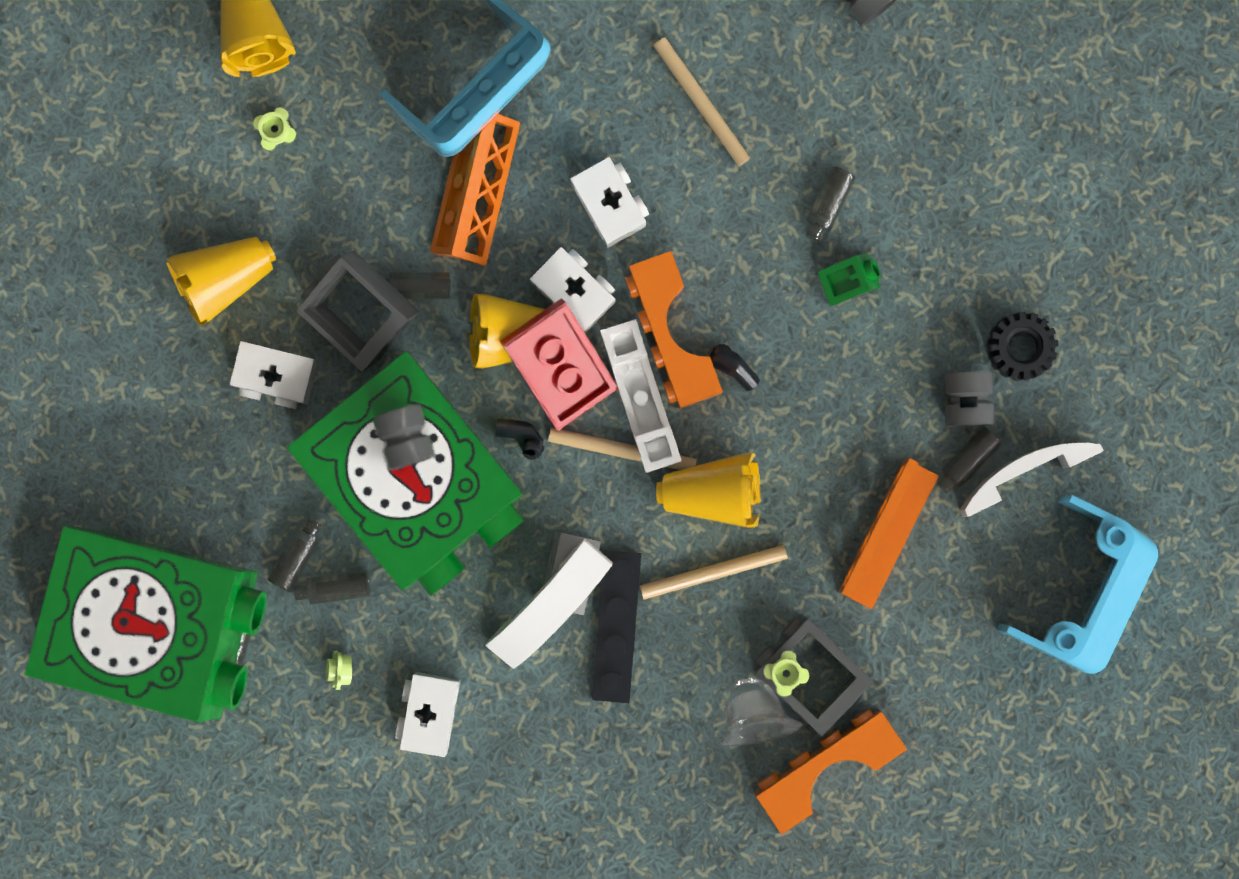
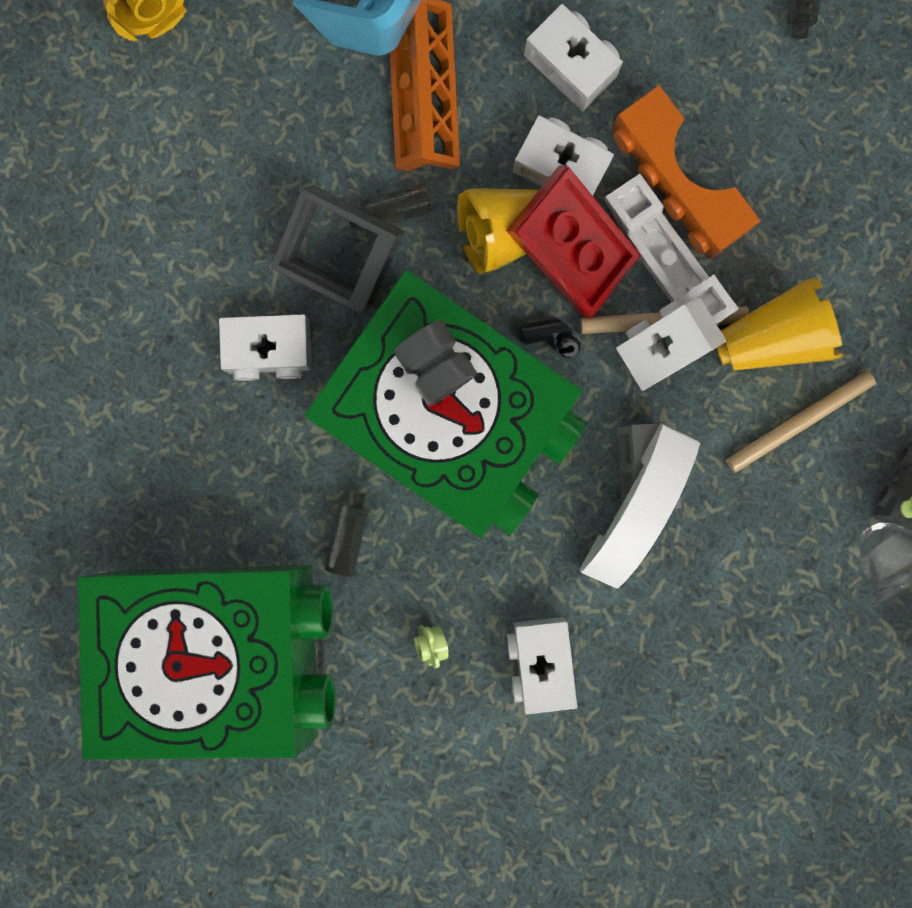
camera: 20 degrees left, 0 degrees up
(219, 274) = (174, 254): yellow cone -> none
(267, 121) = (190, 73): yellowish green plate -> none
(334, 587) = (399, 557): clear smoke cylinder -> none
(614, 473) = (692, 335): none -> white brick
(617, 628) = (717, 516): black plate -> none
(733, 365) = (760, 194): black arm -> none
(850, 278) = (853, 66): green bracket -> none

